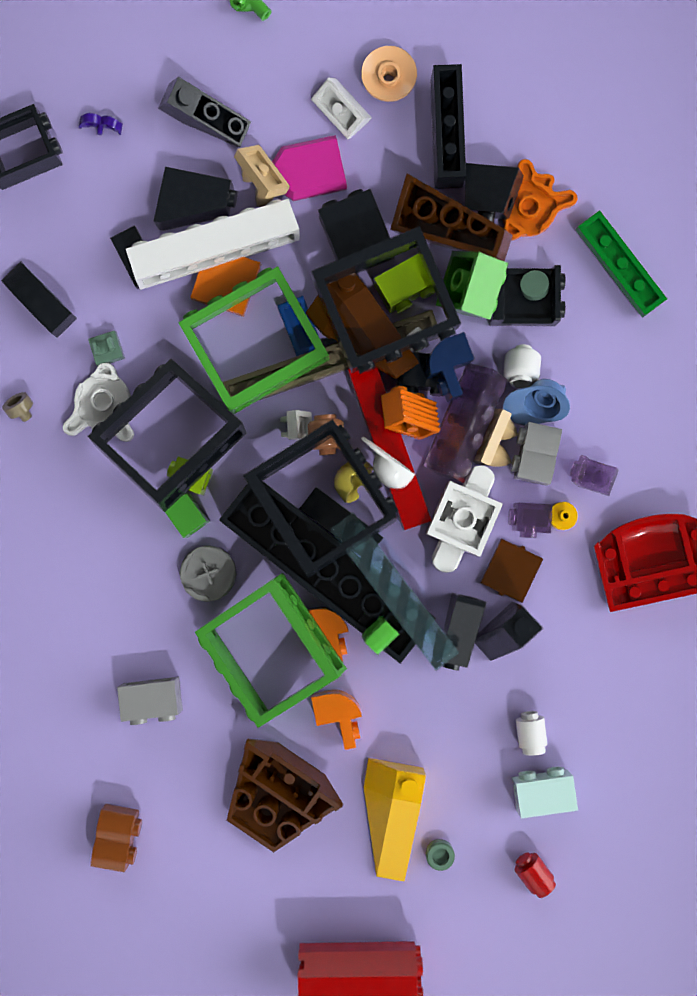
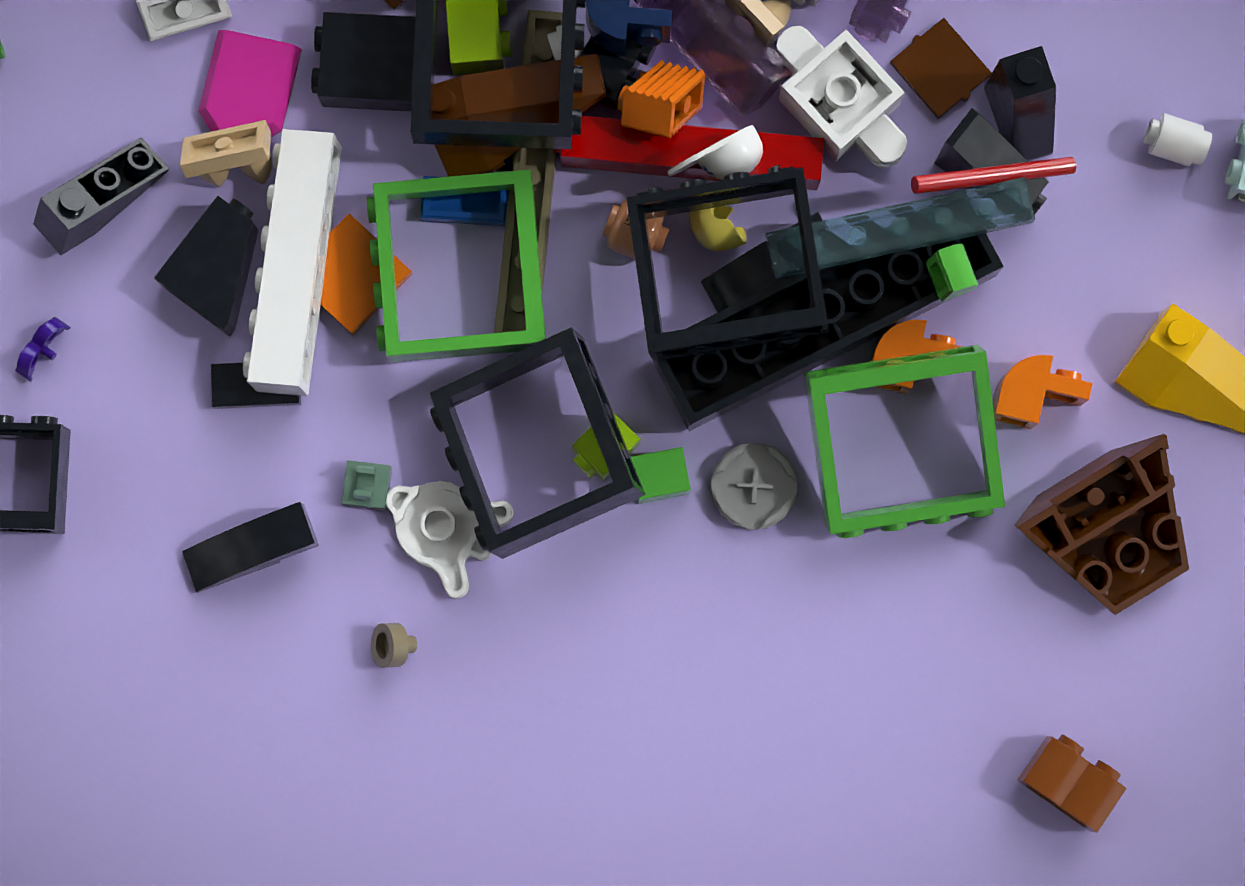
camera: 70 degrees left, 5 degrees down
(150, 700) = (898, 645): light grey brick -> none
(297, 424) = (603, 262): white tile -> none
(451, 632) = (992, 175): none -> red bar

